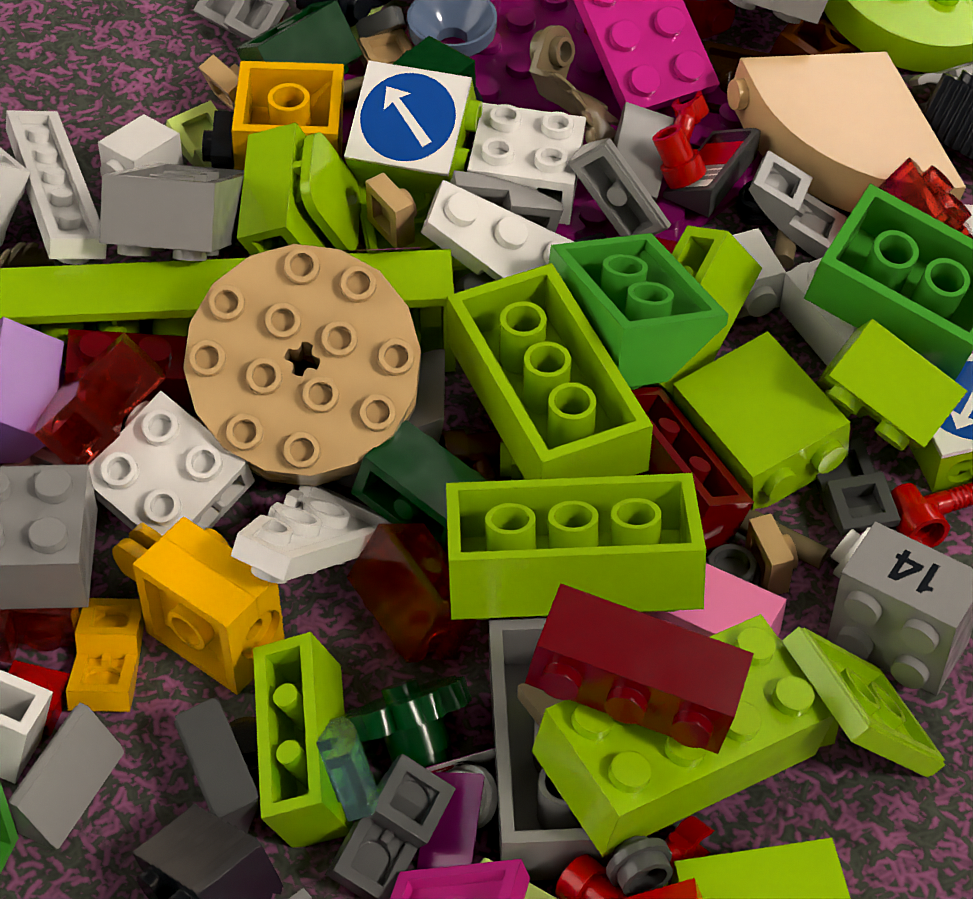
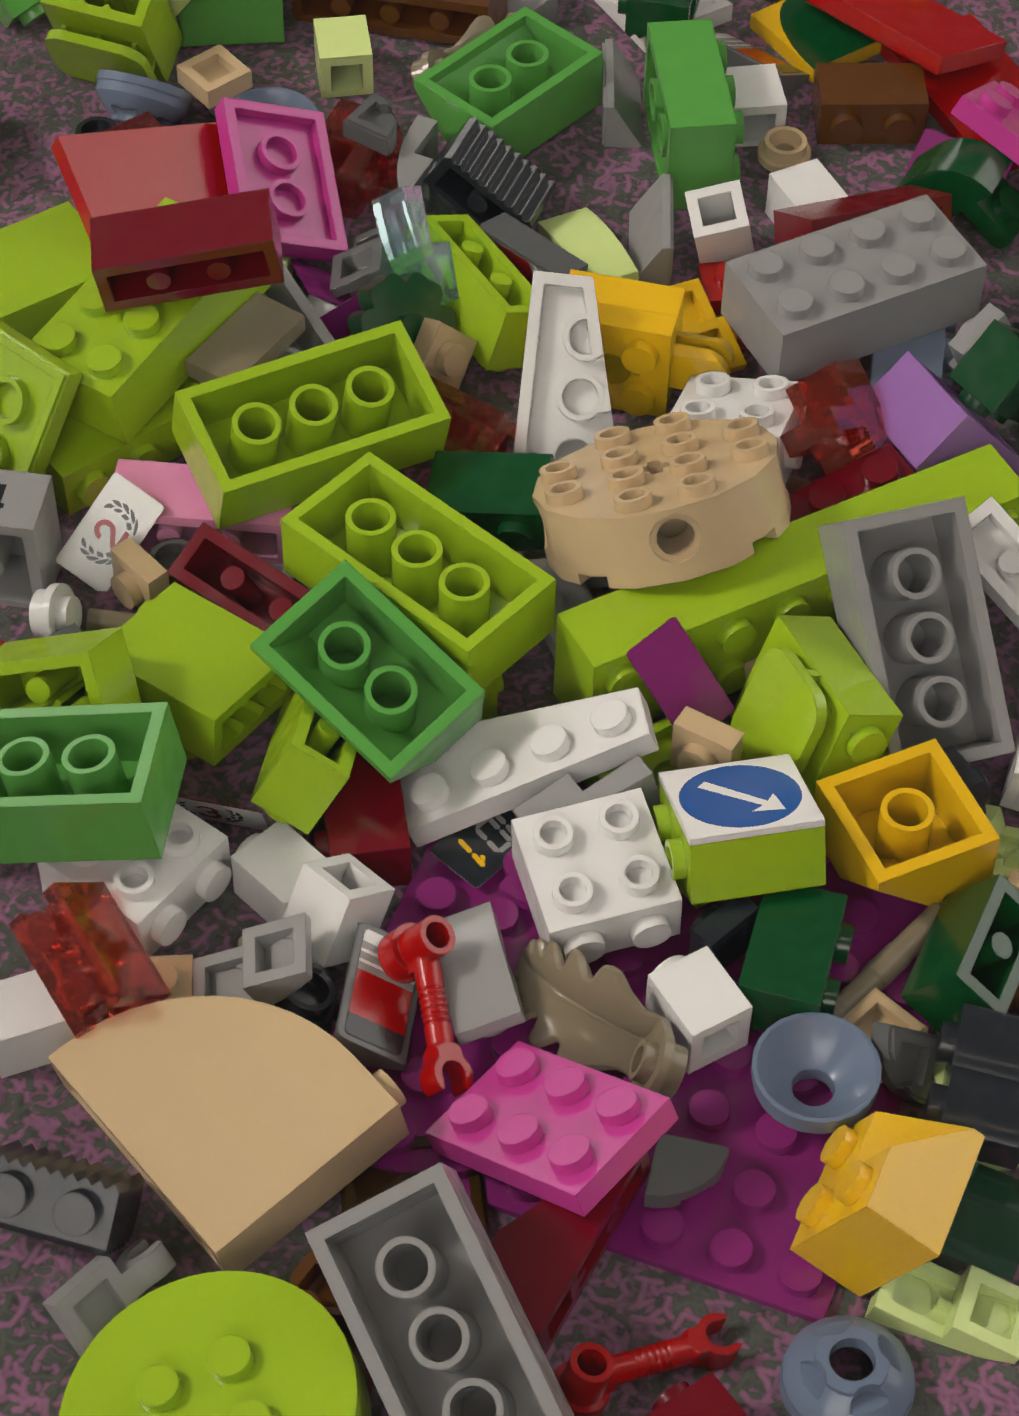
camera: 155 degrees right, 0 degrees up
(143, 784) = (591, 241): none -> yellowish green slope
(377, 671) = (444, 351): none -> tan plate
(503, 75) = (702, 1006): none -> white brick
(560, 15) = (683, 1170): none -> dark grey tile
(617, 189) = (461, 856): light grey slope -> none
(715, 208) = (336, 897): none -> white brick
(784, 592) = (115, 515): none -> white sticker
(802, 344) = (224, 813): none -> white sticker

